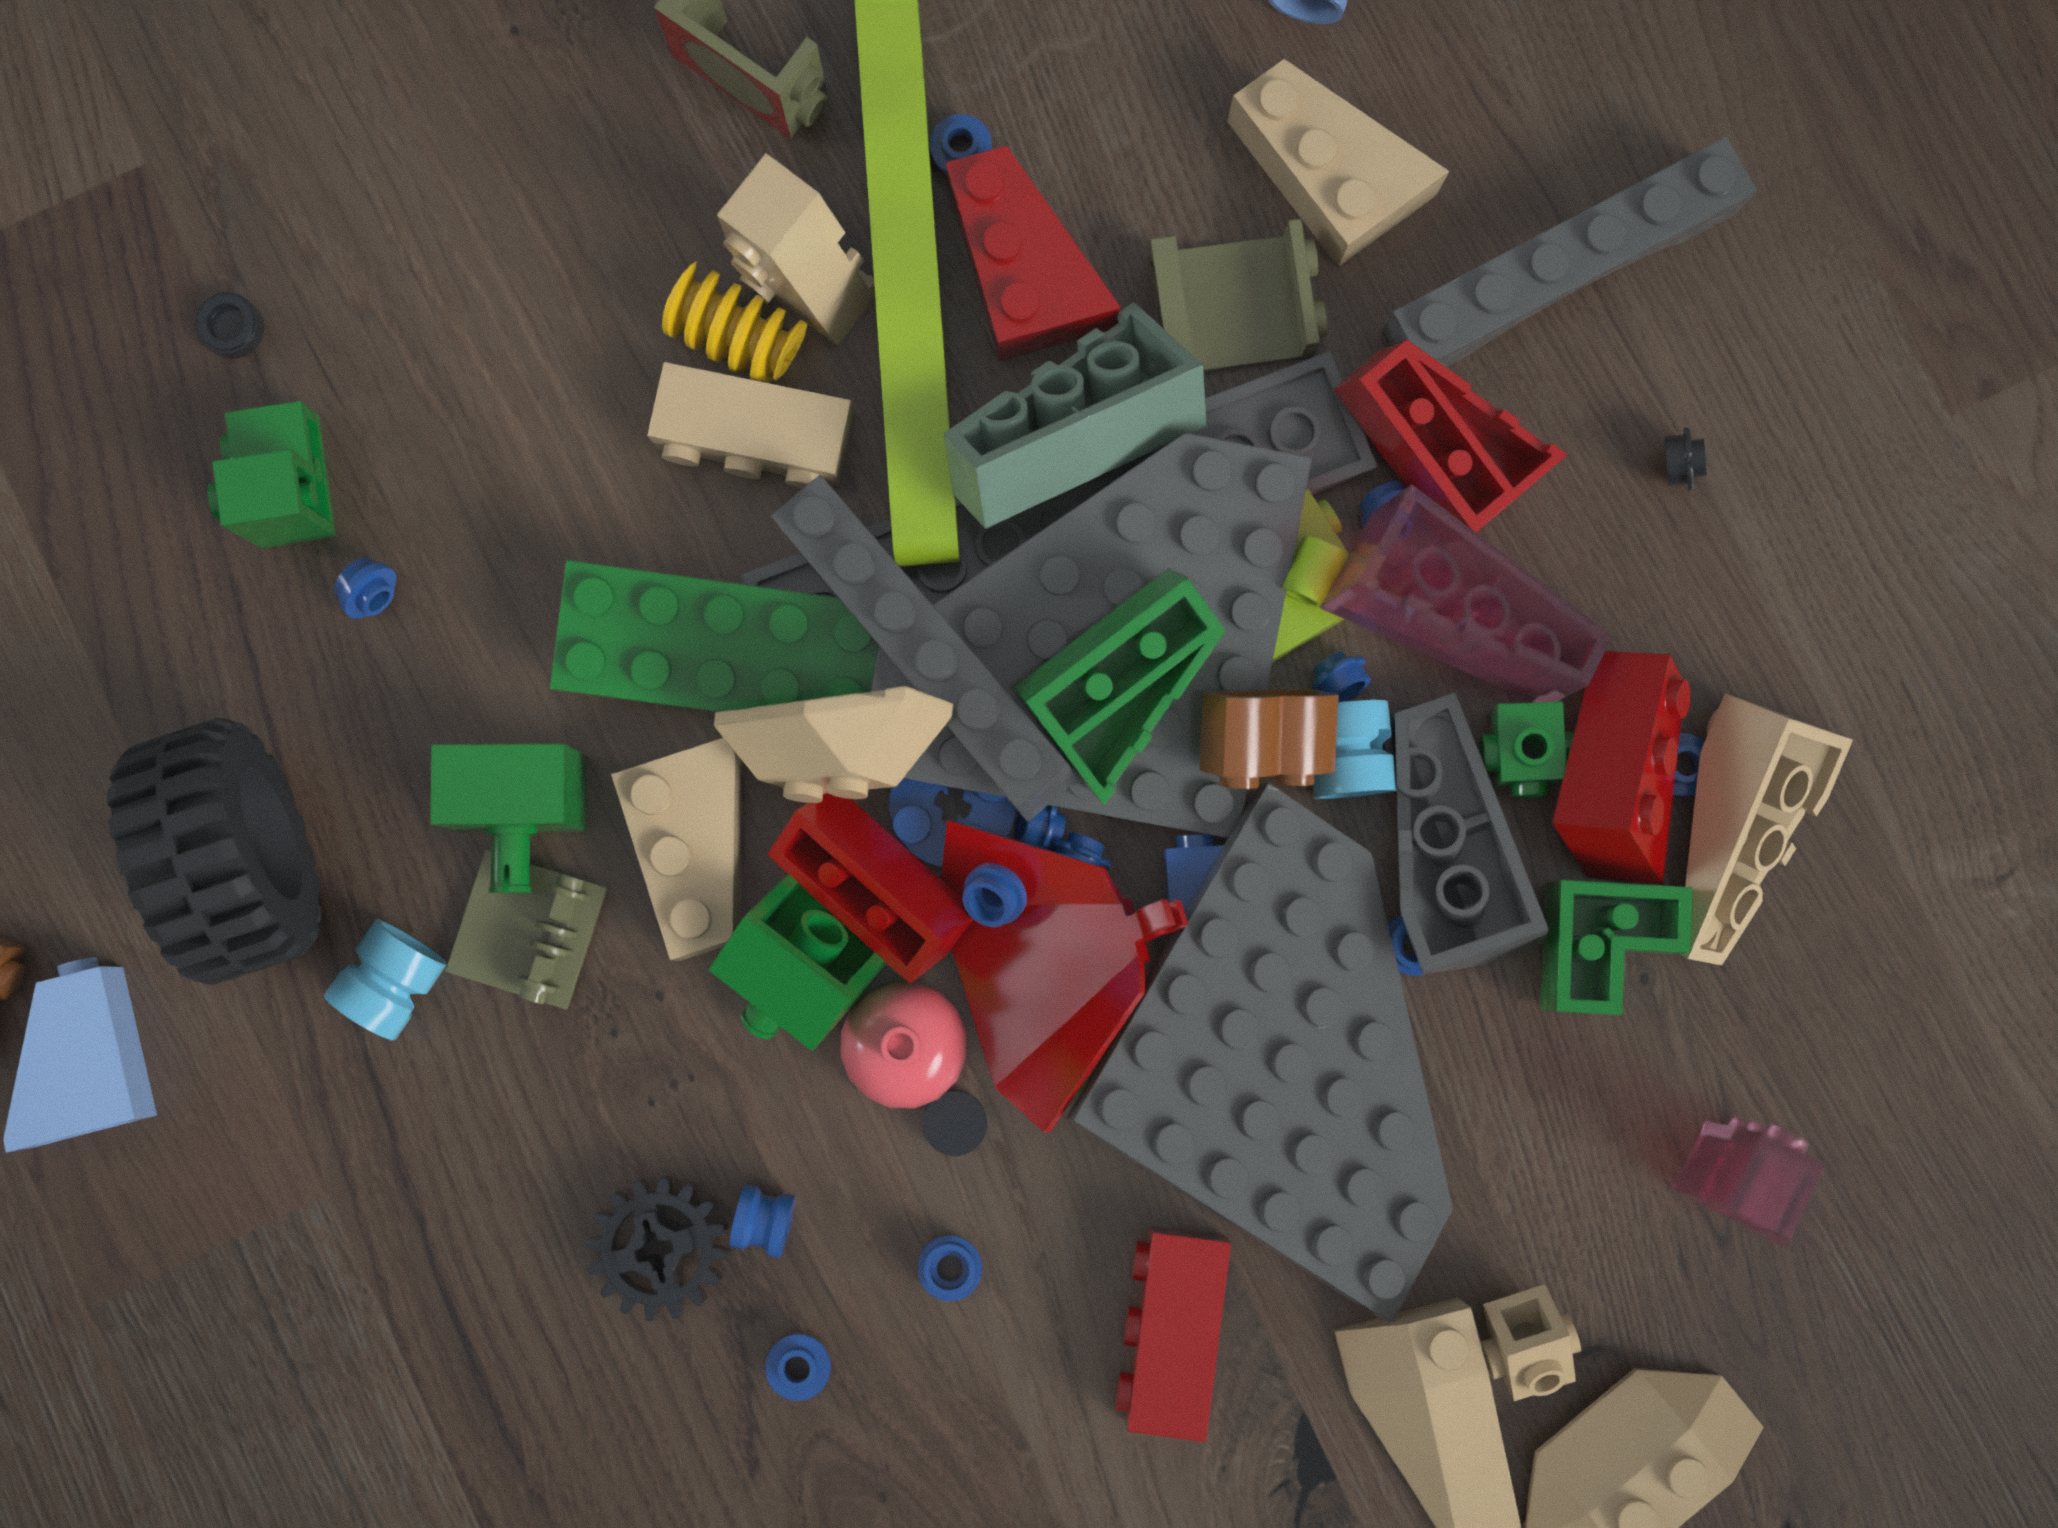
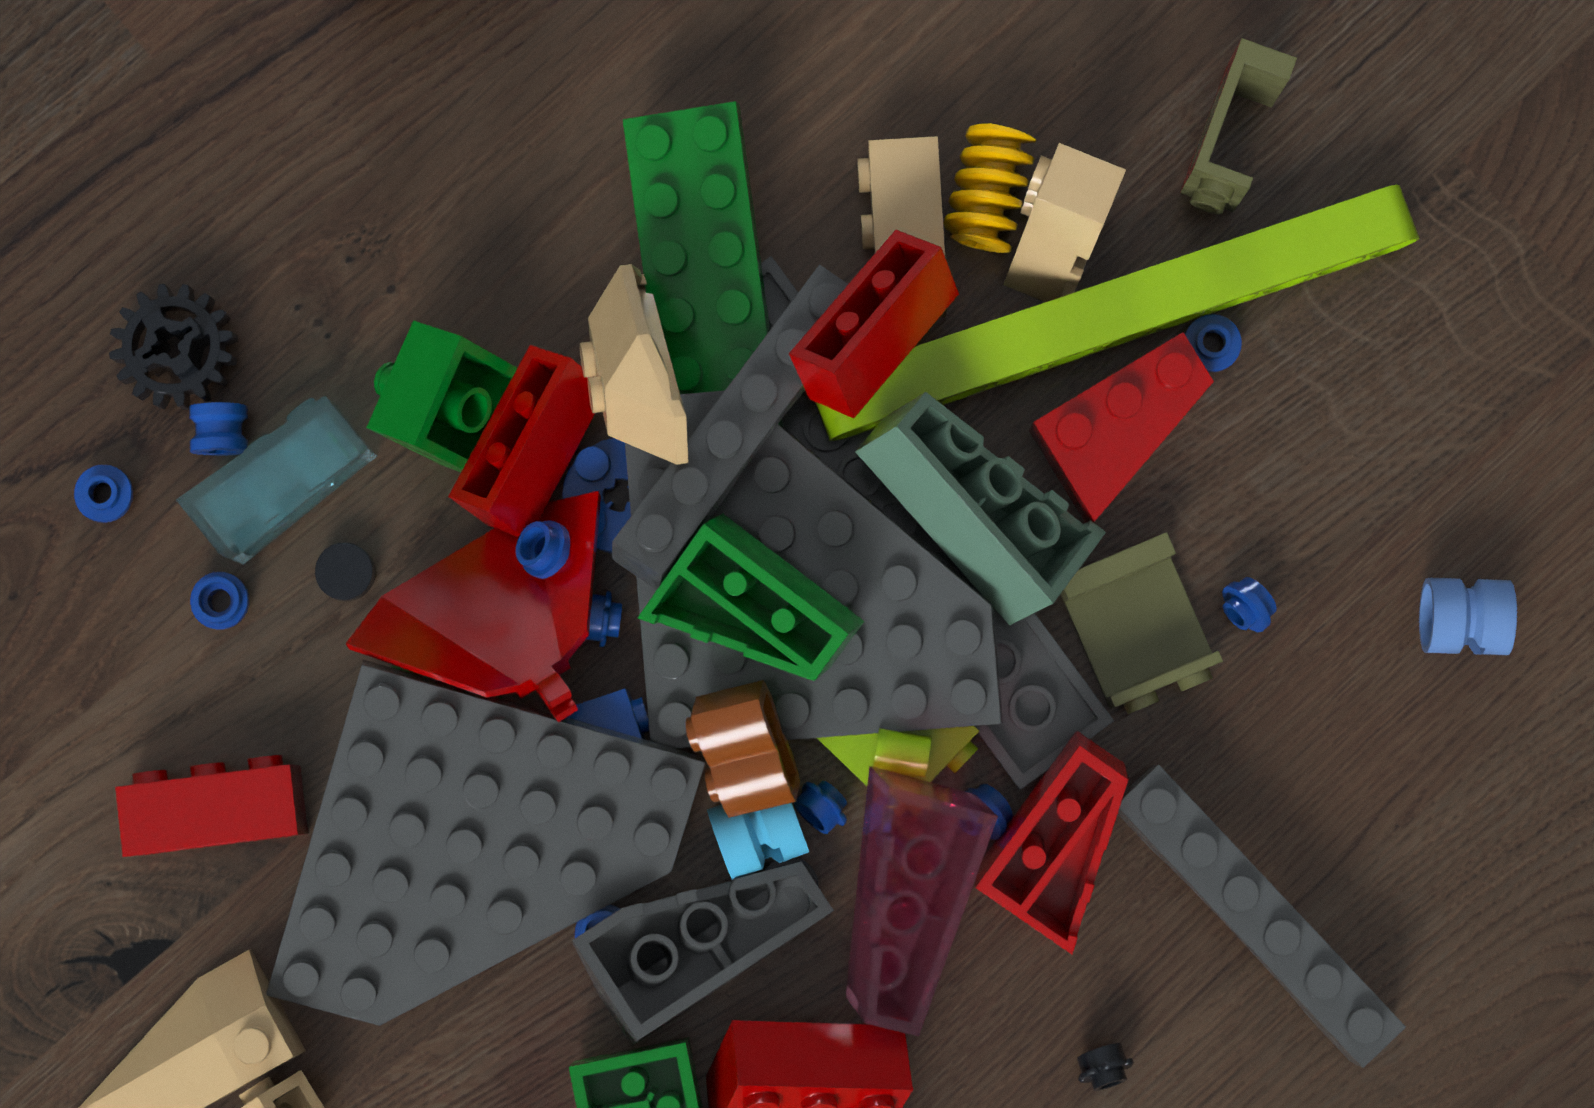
camera: 85 degrees right, 0 degrees up
(380, 987) = (332, 49): medium azure wheel -> none
(509, 795) = (520, 113): green brick -> none
(528, 940) = (416, 160): olive hinge -> none
(688, 843) = (521, 276): tan wedge -> none
(836, 1169) = (277, 480): none -> clear light blue wedge
(853, 470) = (874, 323): none -> red brick
(903, 1044) = (400, 509): coral cylinder -> none
(1042, 828) = (615, 578): blue plate -> none
(1244, 182) = (1248, 604): none -> blue plate
(1331, 159) = (1288, 677): tan wedge -> none
(1540, 729) = (819, 972): green brick -> none

